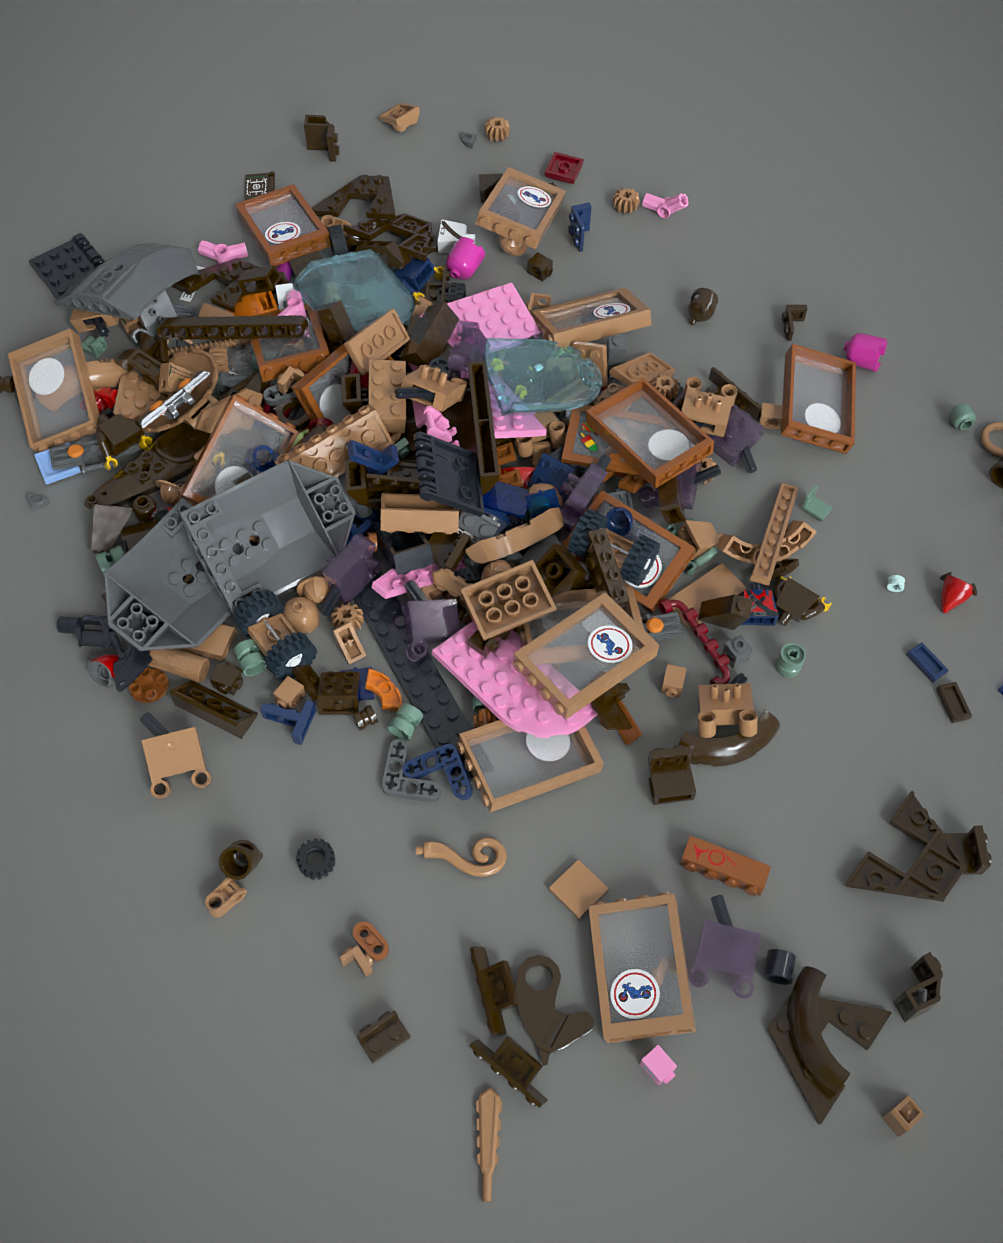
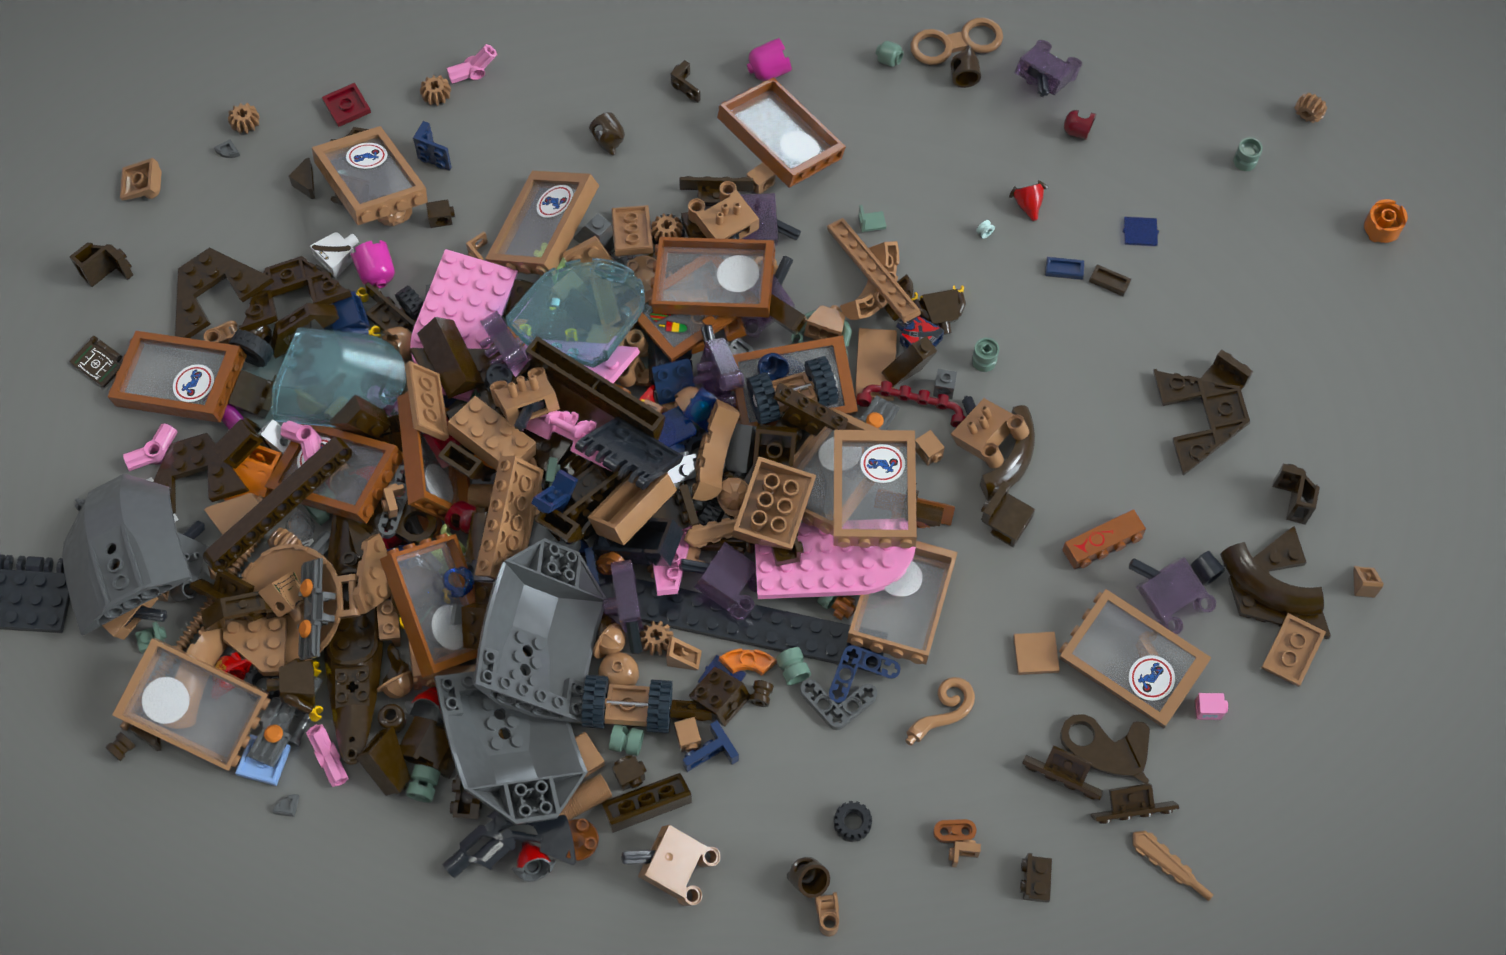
camera: 50 degrees left, 5 degrees up
(91, 482) = (327, 755): none -> bright pink piece
(776, 1098) = (1293, 650): none -> medium nougat plate

